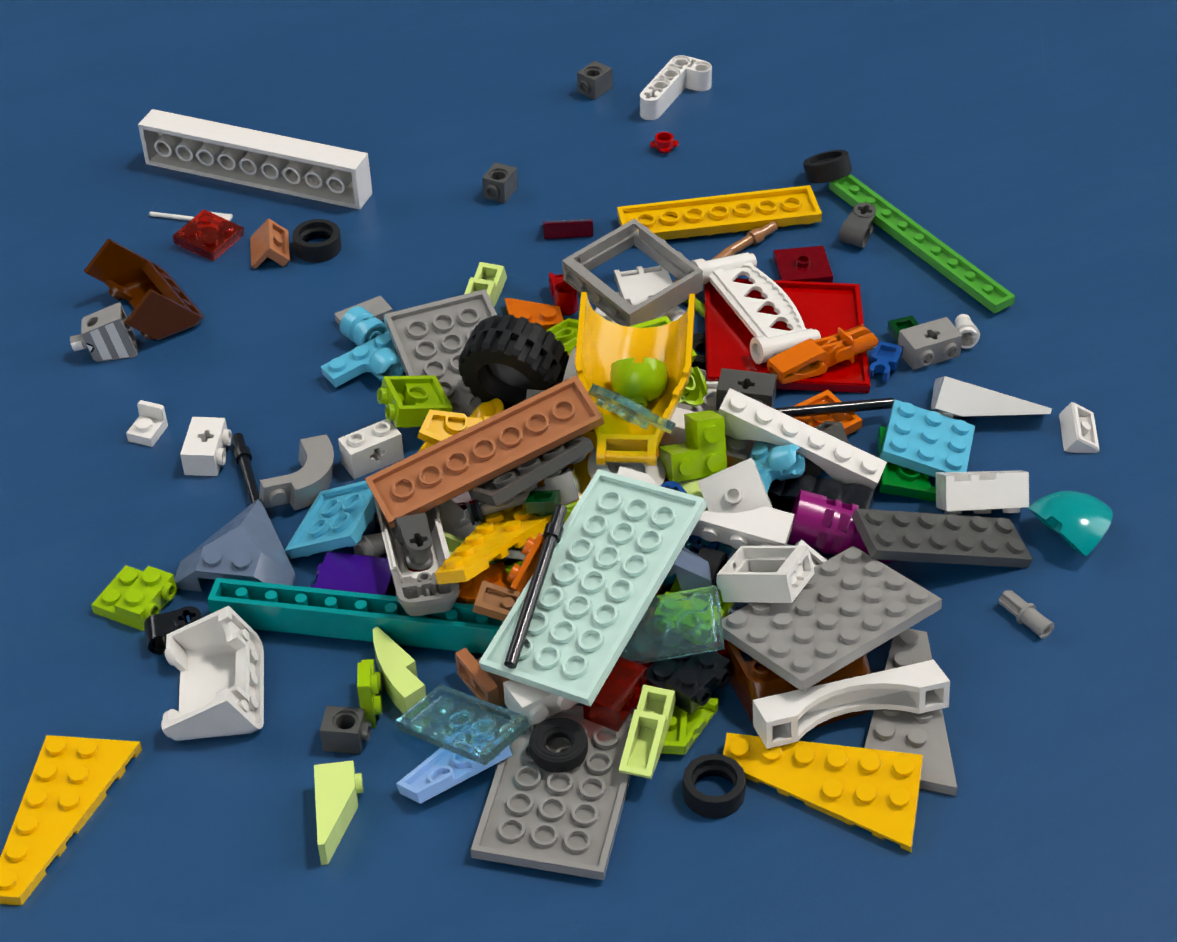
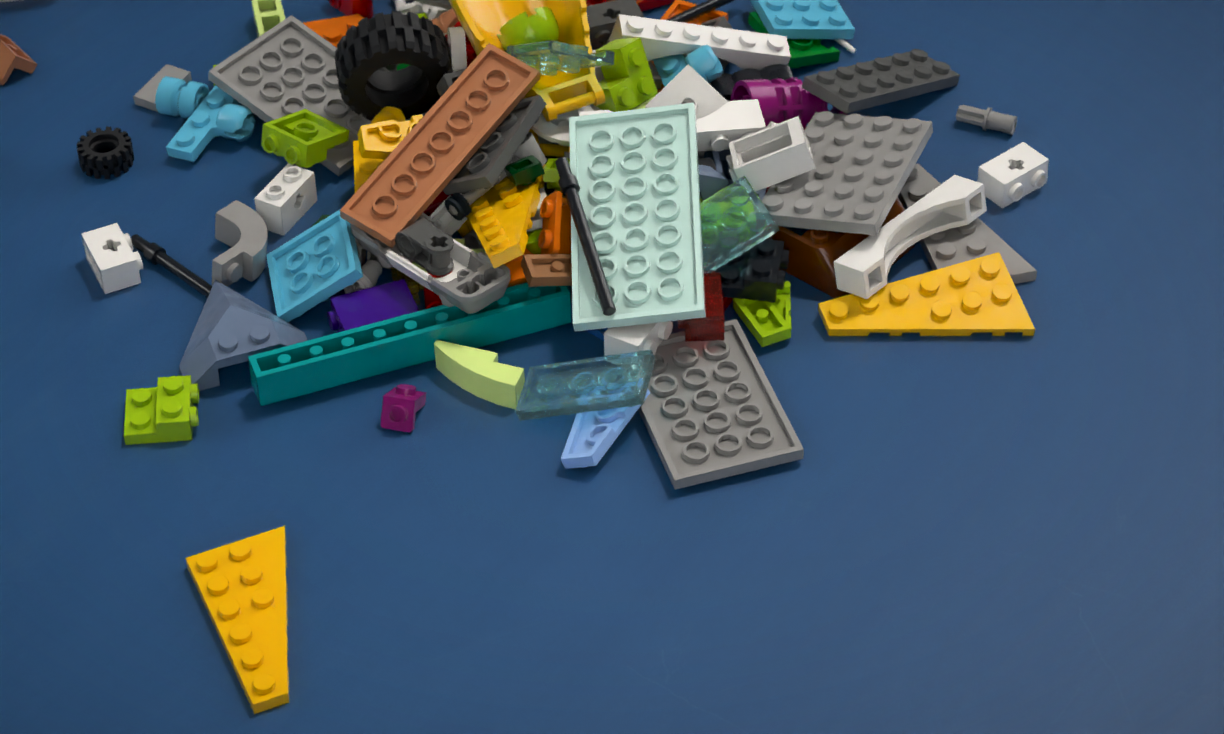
camera: 30 degrees left, 0 degrees up
(148, 425) = (28, 260): white bracket -> none
(160, 625) = (231, 425): black piece -> none
(219, 678) = (310, 445): white windscreen -> none
(275, 354) = (105, 152): none -> black tyre
(311, 672) = (400, 407): none -> magenta bracket
(317, 251) = (53, 48): black tyre -> none
(335, 803) = (514, 493): yellowish green slope -> none
(344, 729) = (474, 437): dark grey brick -> none
(368, 685) = (472, 393): lime plate -> none
(481, 683) = (560, 347): nougat panel -> none
(558, 761) = (685, 382): black tyre -> none
(648, 731) = (756, 324): yellowish green slope -> none
(718, 766) = (838, 333): black tyre -> none
(982, 491) = (880, 34): white wedge -> none
(1005, 680) = (1013, 174): none -> white brick
(1075, 517) = (974, 26): teal brick -> none

